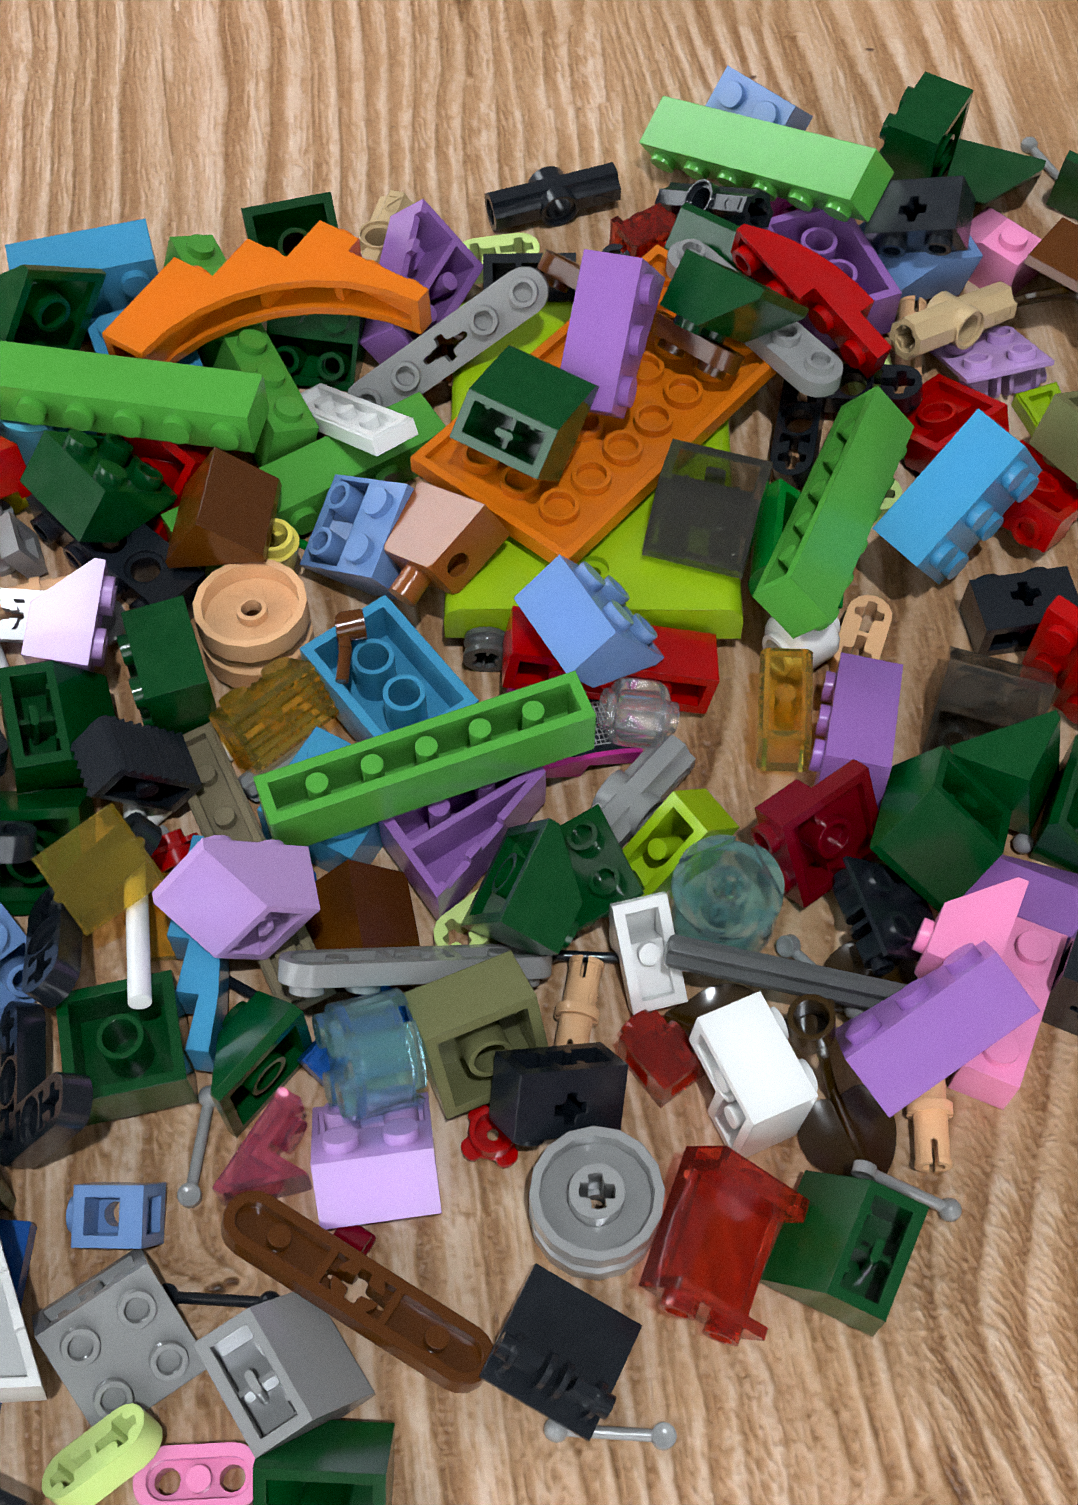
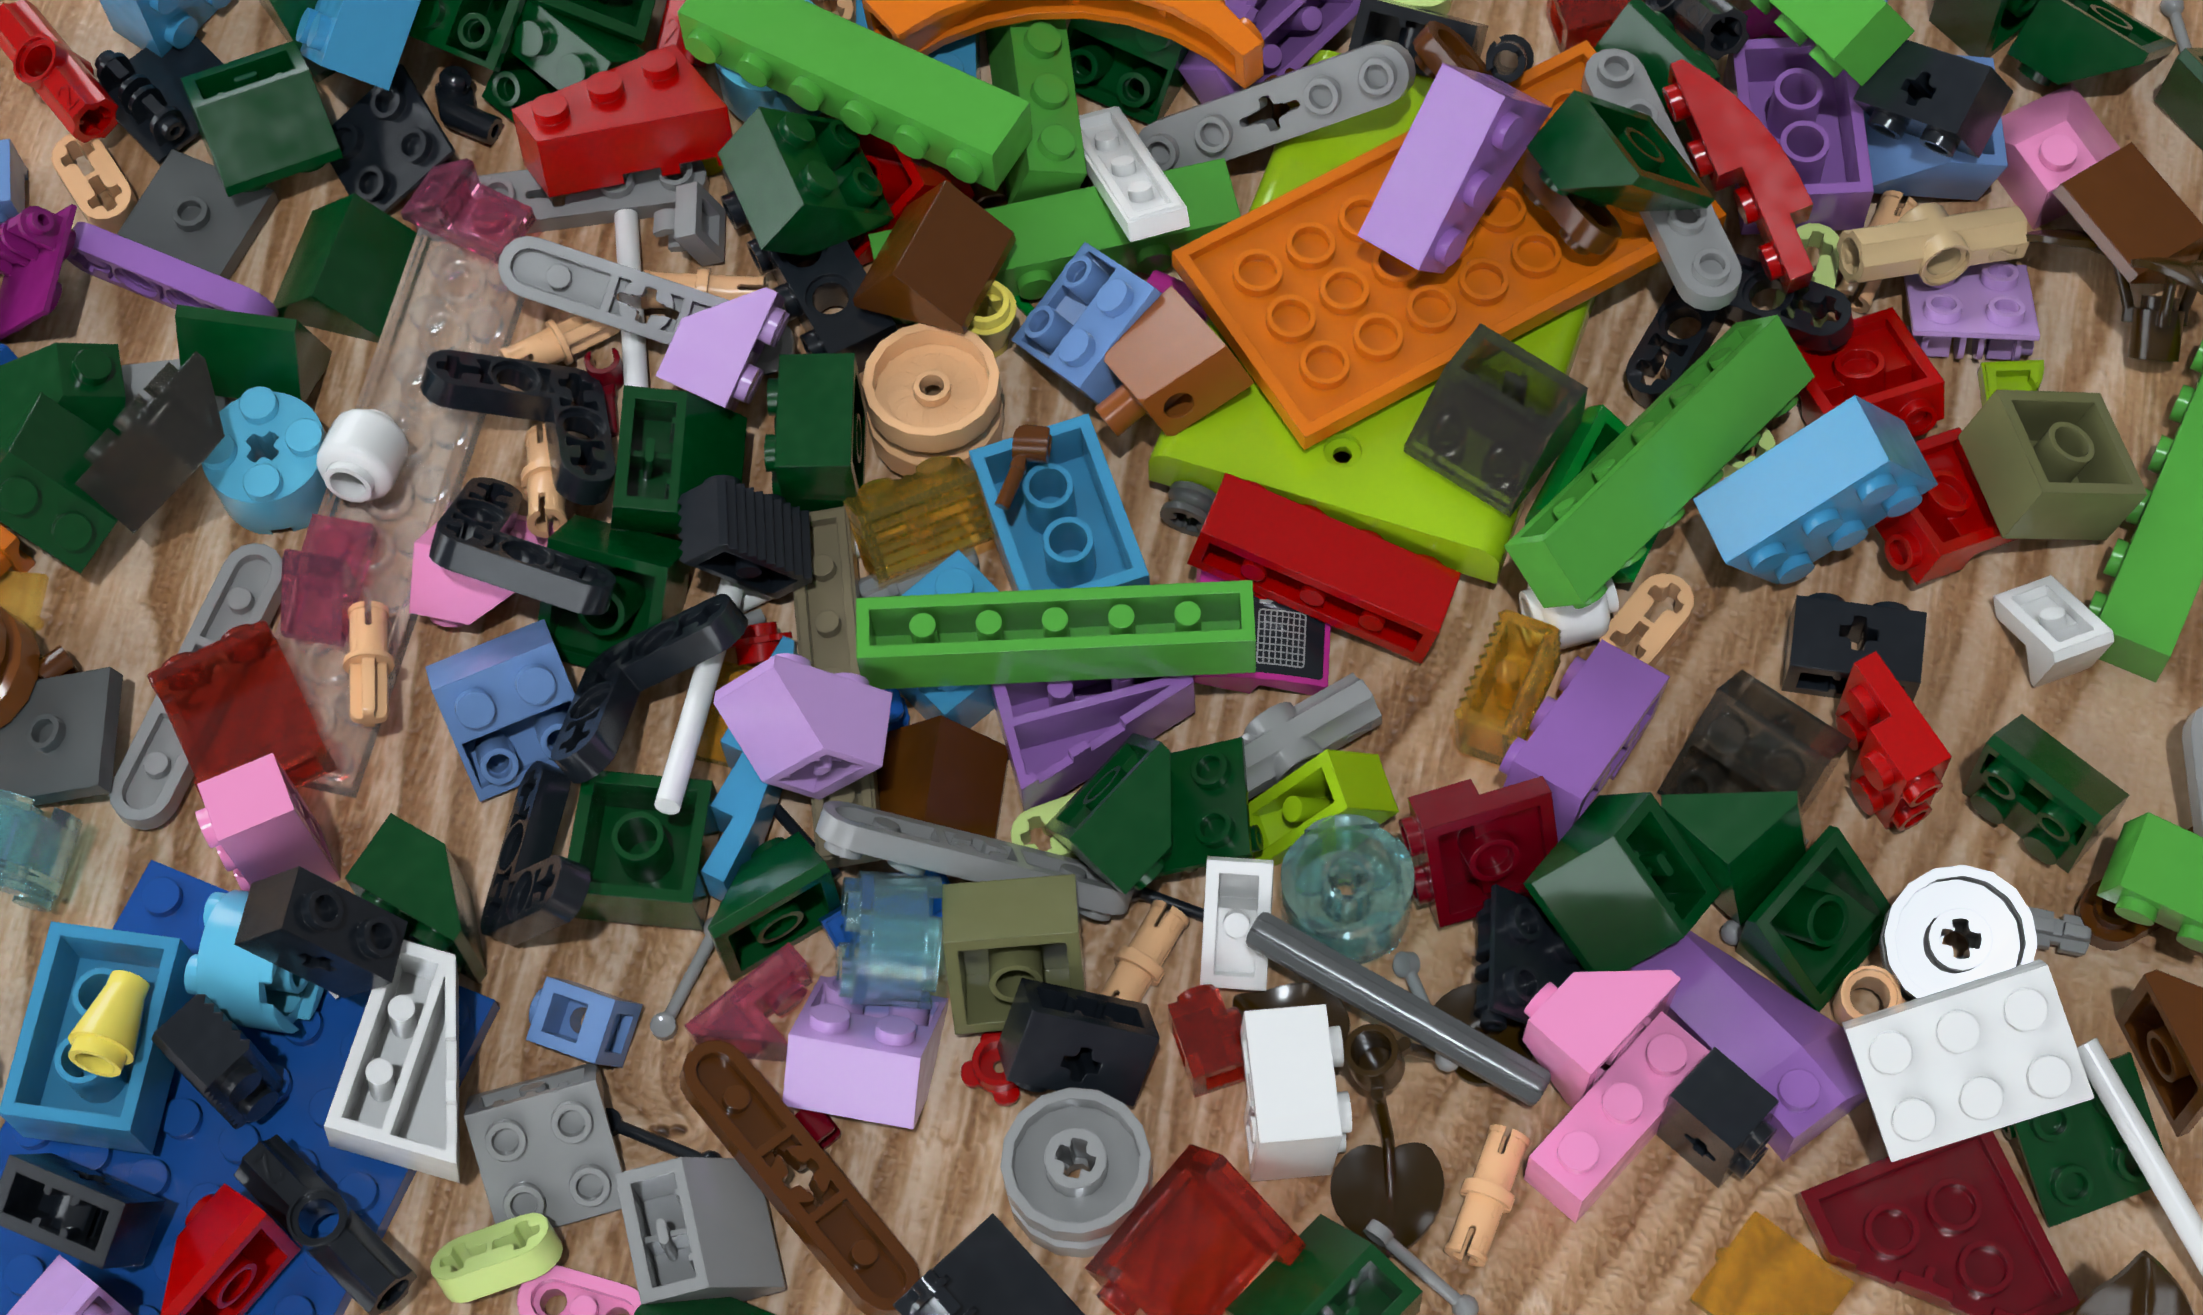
camera: 25 degrees right, 5 degrees up
(99, 869) = (668, 647): clear yellow piece -> none
(525, 414) = (1313, 245): dark green slope -> none
(588, 623) = (1299, 524): medium blue slope -> none
(637, 713) = (1329, 642): clear head -> none
(934, 1025) = (1501, 1102): medium lavender wedge -> none

